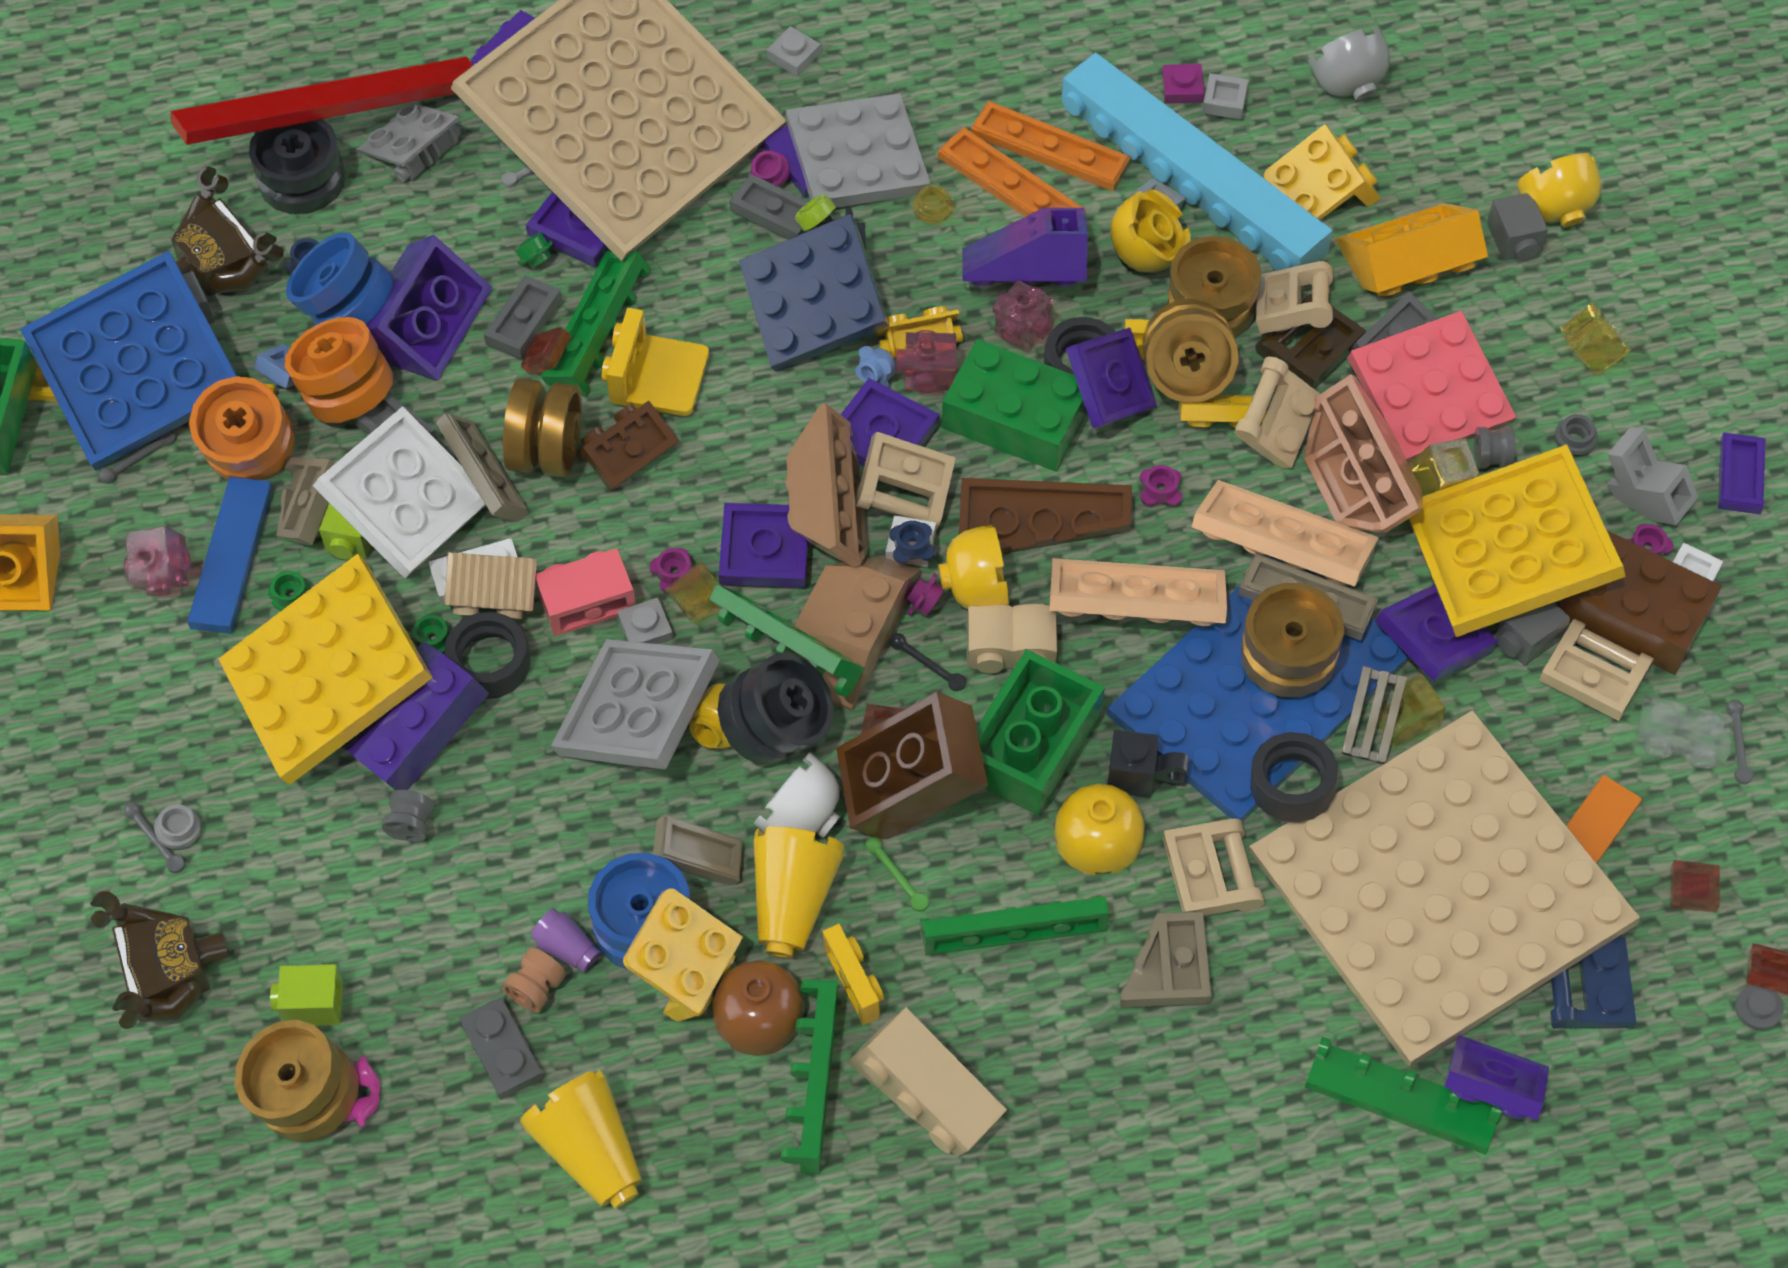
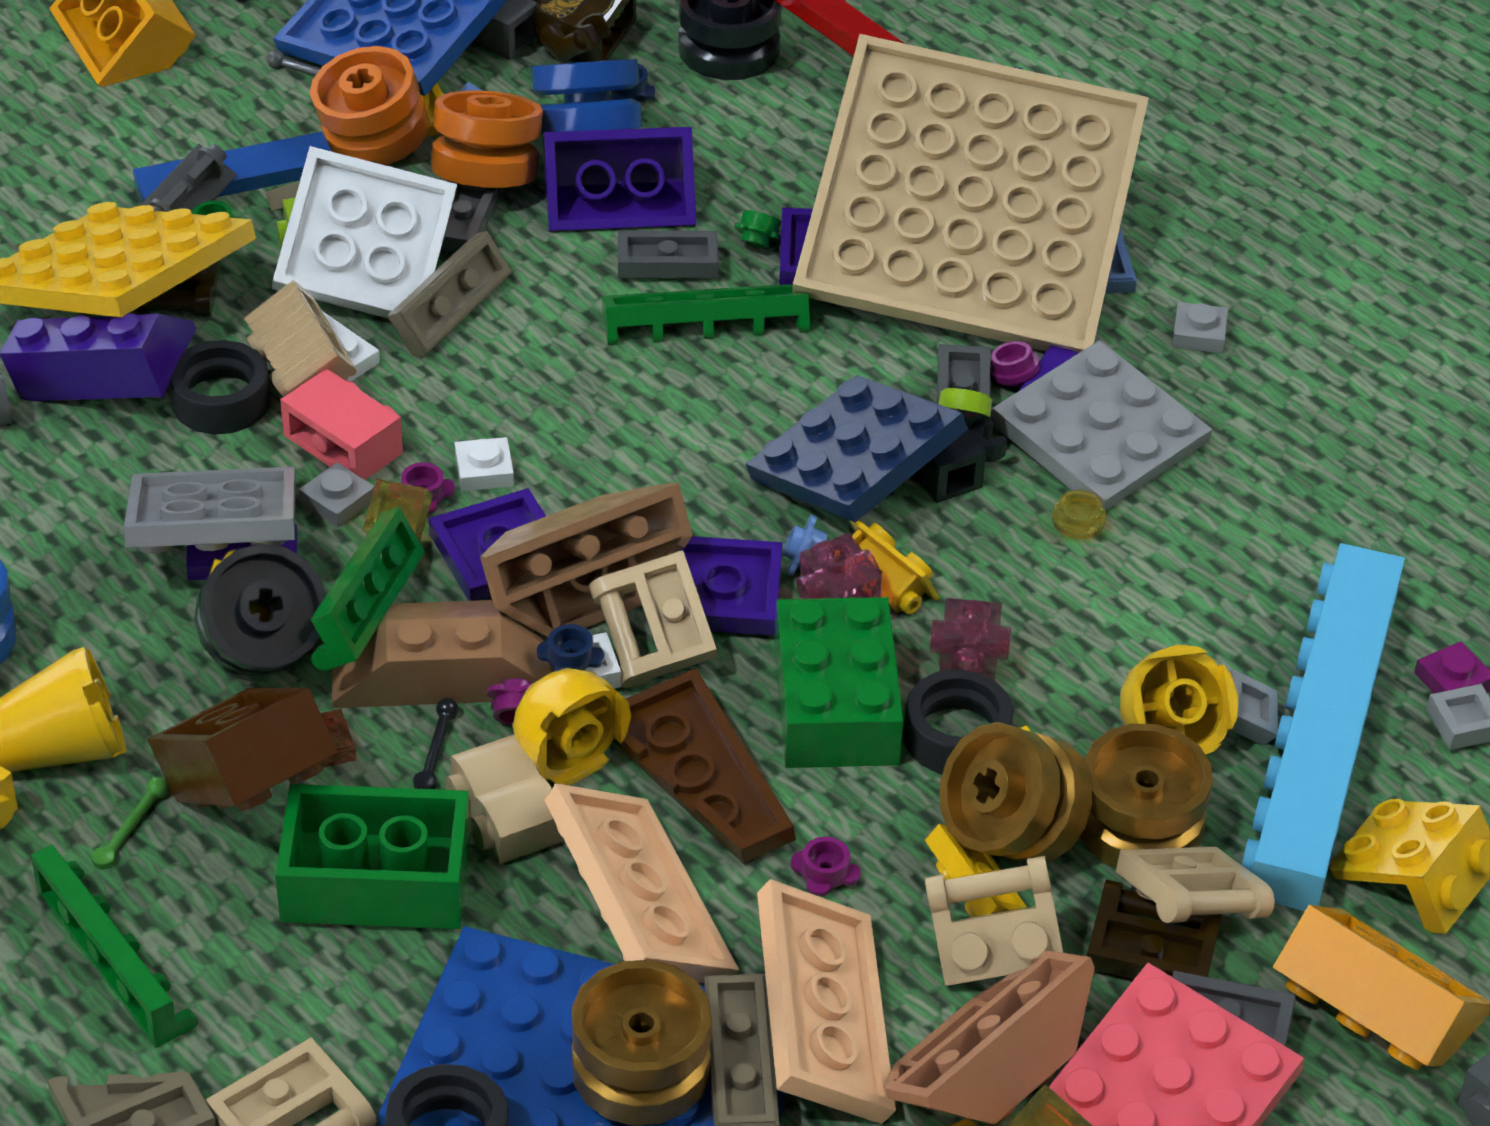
camera: 60 degrees right, 15 degrees down
(157, 560) = (182, 115): clear pink brick -> none
(245, 589) = (194, 181): none -> dark grey hinge
(413, 139) = (805, 87): light grey hinge -> none
(428, 626) = (221, 329): green plate -> none
(542, 427) = (515, 303): pearl gold wheel -> none
(545, 351) = (634, 283): clear red tile -> none
(627, 445) = (556, 388): reddish brown bracket -> none
(653, 368) = (669, 365): yellow bracket -> none
(669, 522) = (484, 464): none -> white plate
(699, 850) = (50, 616): dark tan tile -> none
(805, 800) = (159, 687): white cylinder -> none
(1000, 175) = (1169, 573): orange tile -> none
(1033, 249) = (1068, 617): dark purple slope -> none
(1051, 146) = (1255, 590): orange tile -> none
(1099, 829) = (286, 980): yellow cylinder -> none
(1111, 377) = (916, 733): dark purple tile -> none
(1136, 763) = (391, 976): black brick -> none

